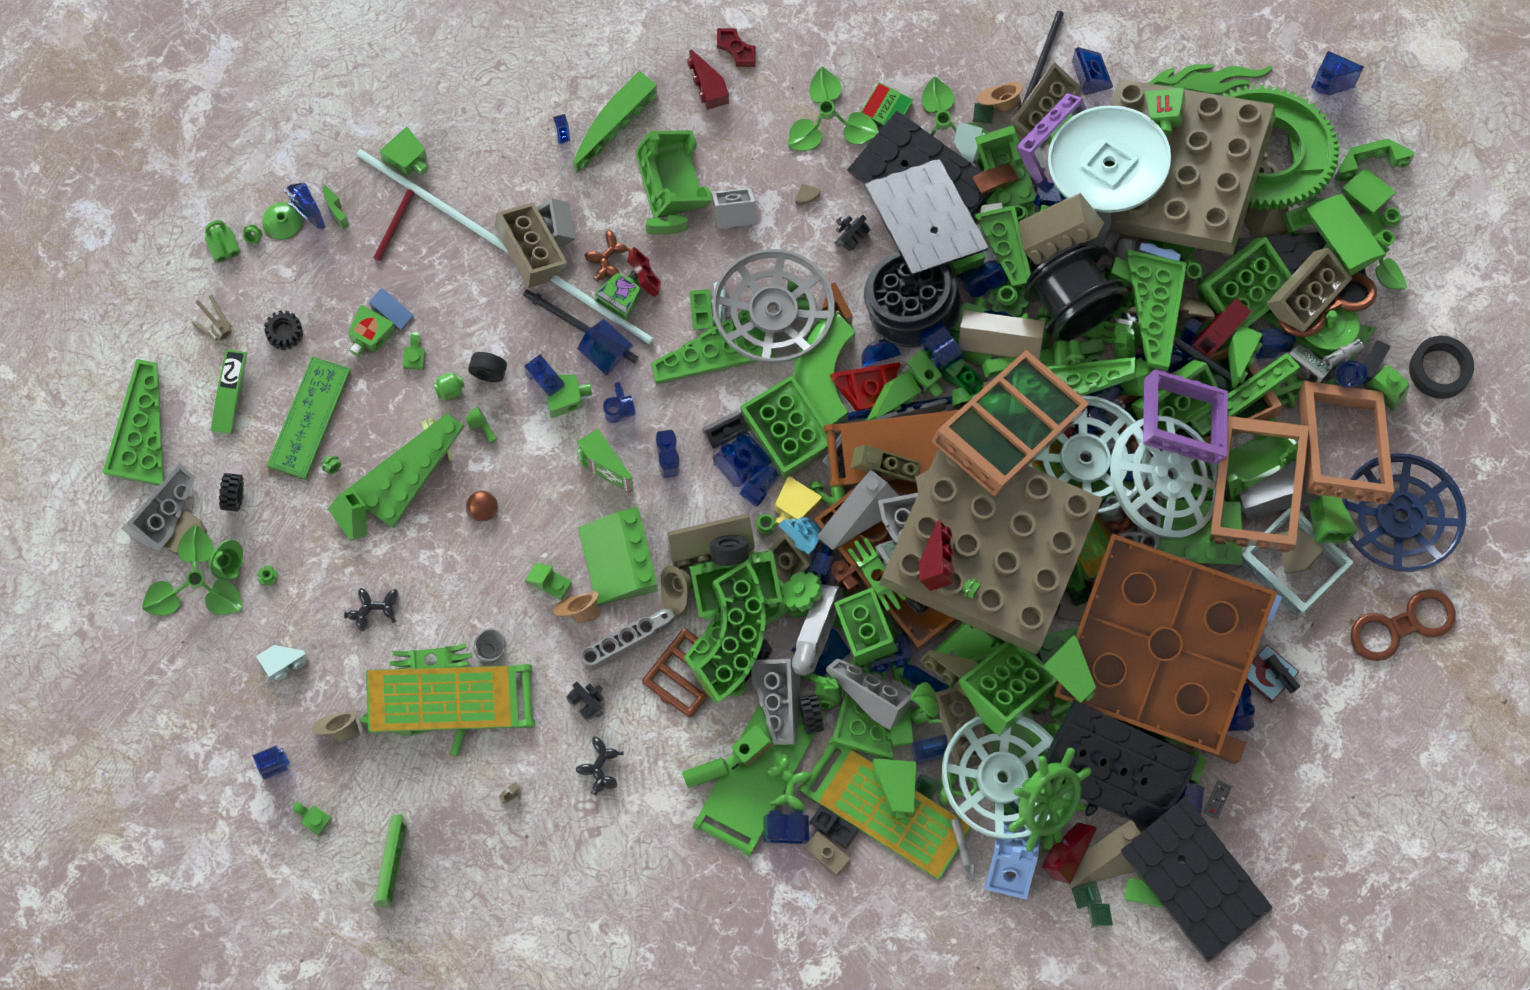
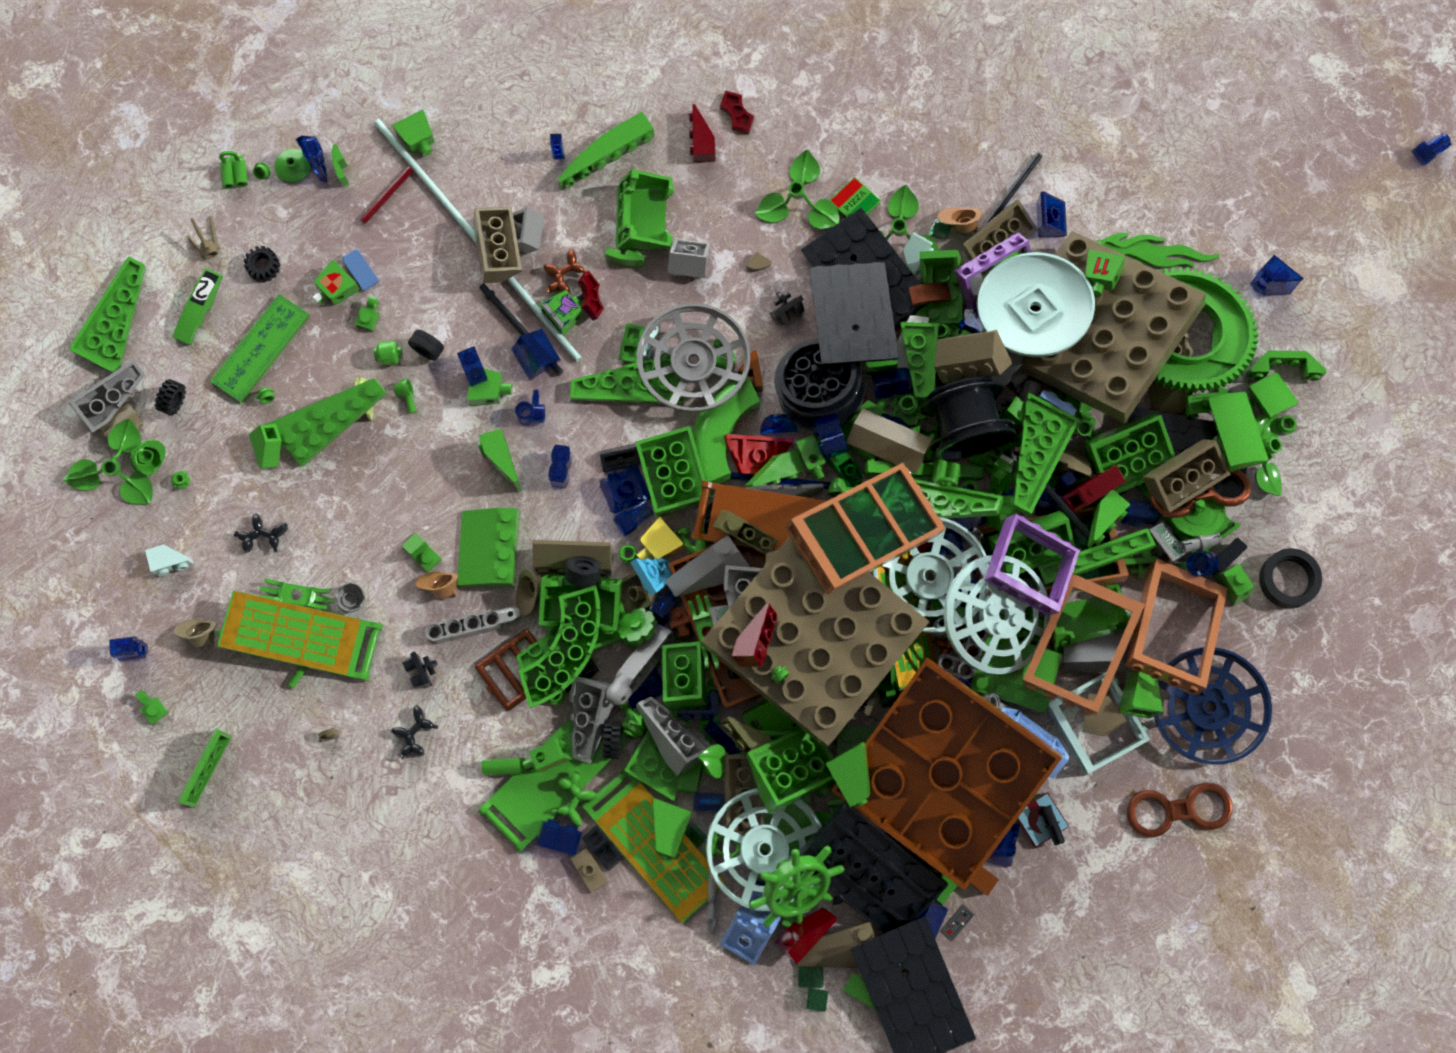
camera: 20 degrees right, 5 degrees up
(481, 506) = (384, 468): copper hair -> none

